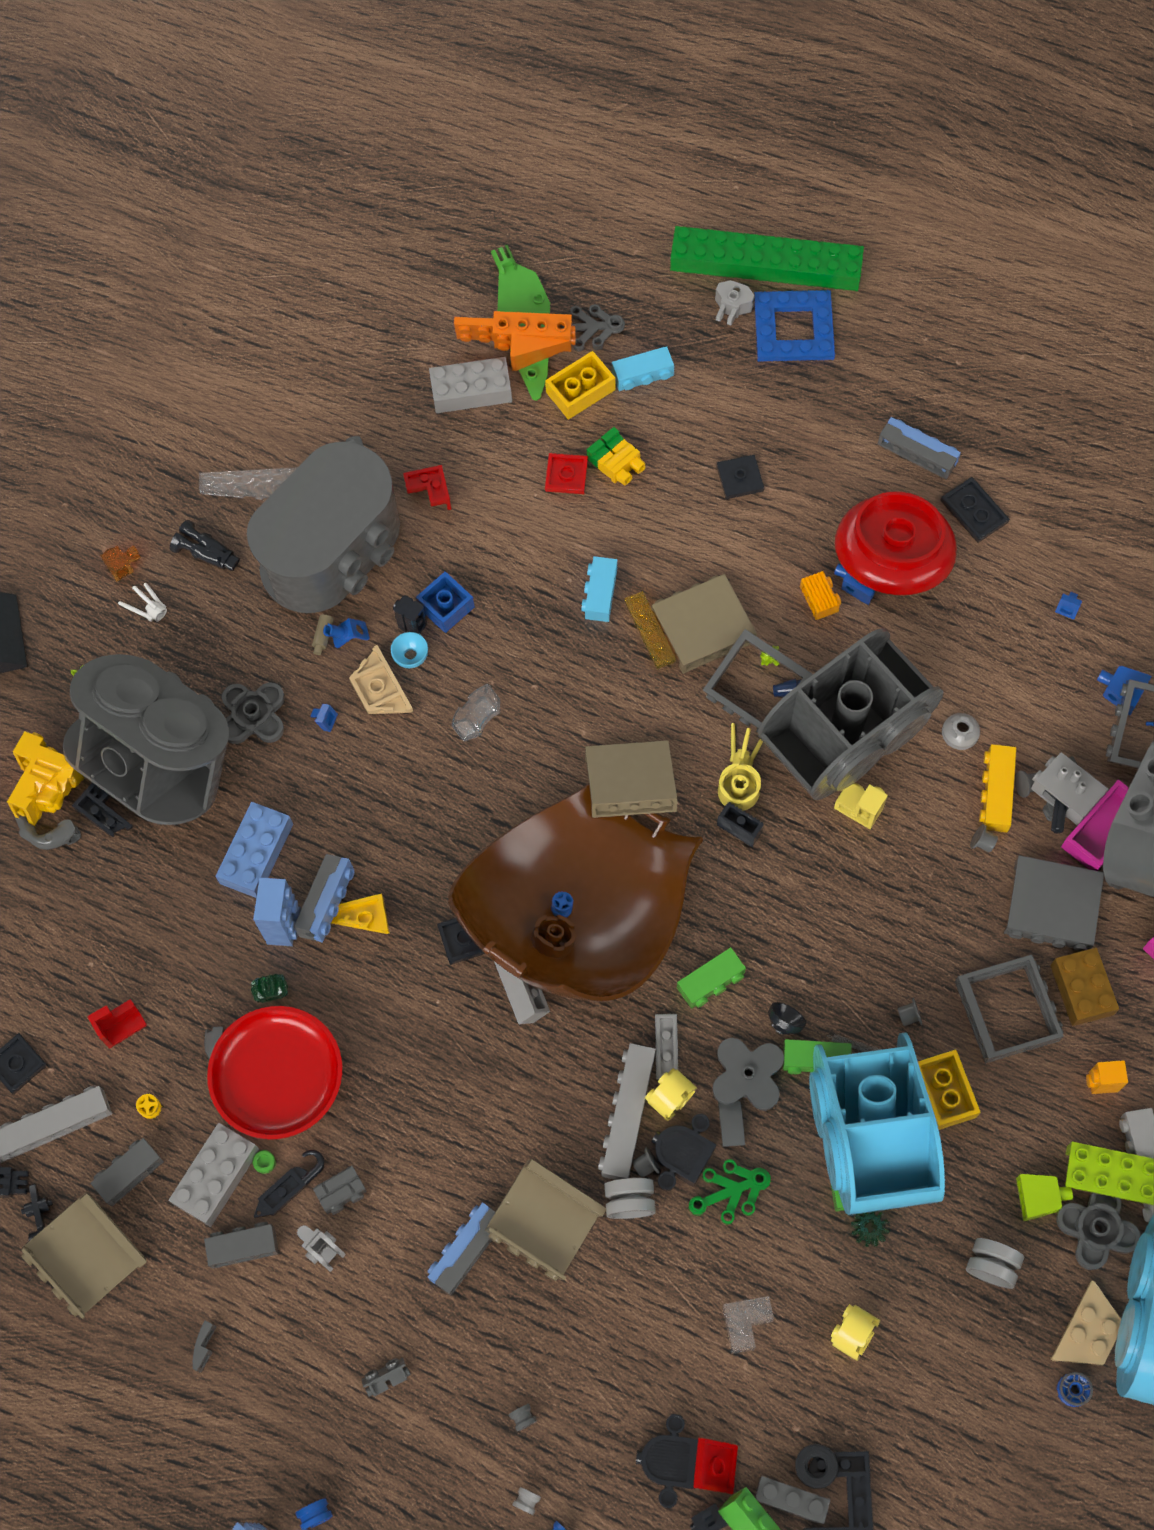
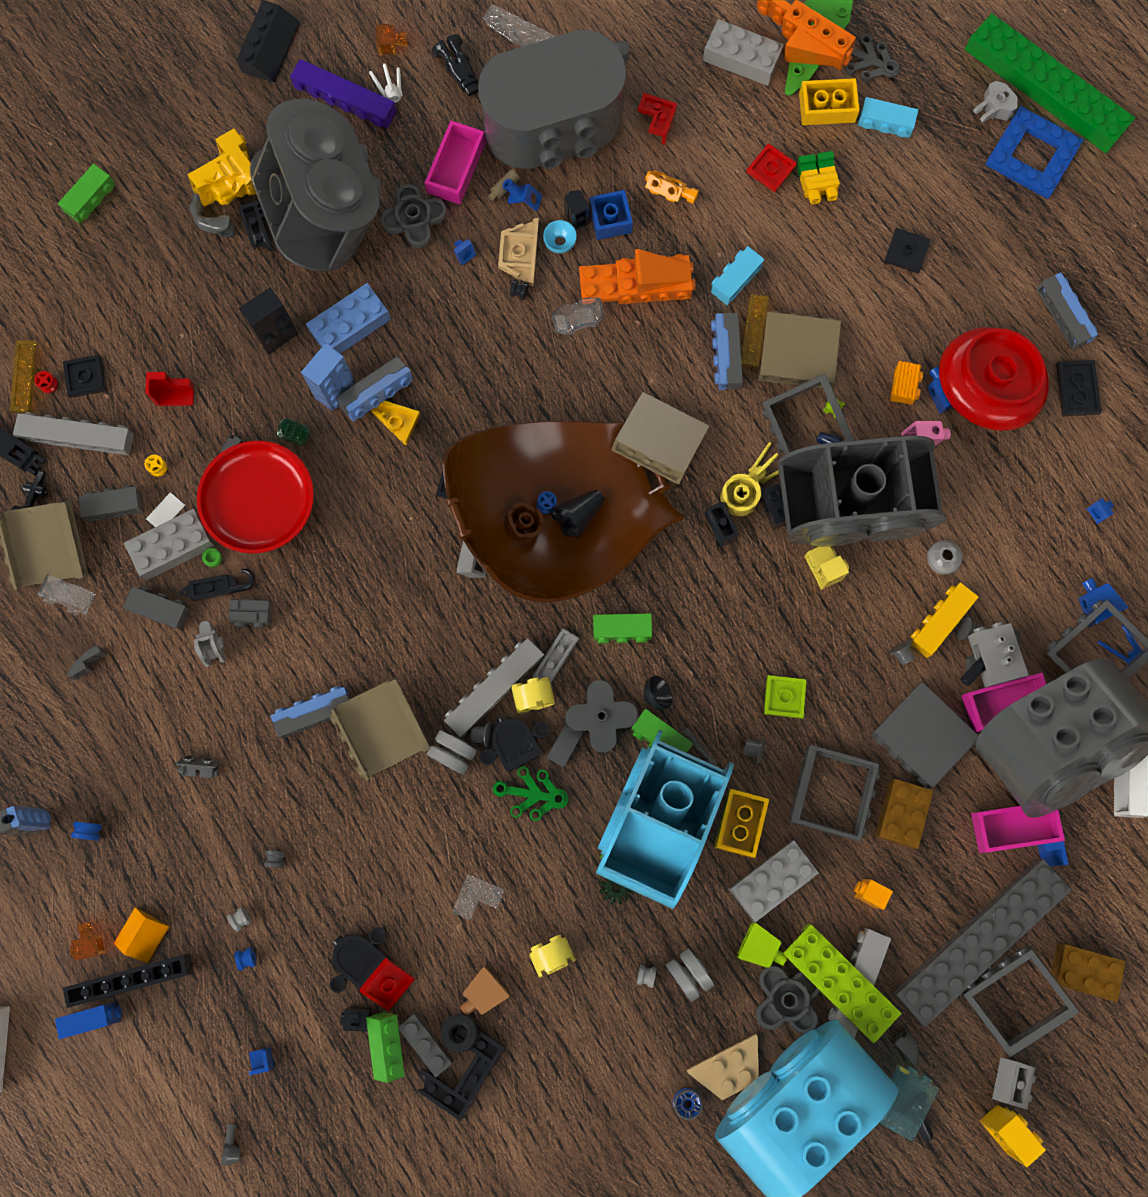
camera: 30 degrees right, 10 degrees up
(107, 638) = (343, 94): none -> dark purple brick
(150, 1289) = (65, 594): none -> clear brick
(180, 893) = (269, 320): none -> black brick
(186, 1146) = (165, 510): none -> white sticker
(262, 639) = (455, 162): none -> dark pink piece
(402, 721) = (519, 289): none -> black wheel
(483, 547) = (667, 187): none -> light orange brick
(512, 646) = (639, 279): none -> orange wedge
(599, 896) = (577, 513): none -> black cone
(638, 663) = (727, 351): none -> piece
(778, 778) = (773, 506): none -> black brick
(813, 1412) = (484, 993): none -> medium nougat torso
(867, 625) = (929, 429): none -> bright pink torso
(904, 948) = (785, 697): none -> lime plate
(954, 1293) = (646, 975): none -> light grey wheel
(1010, 1125) = (773, 881): none -> light grey brick

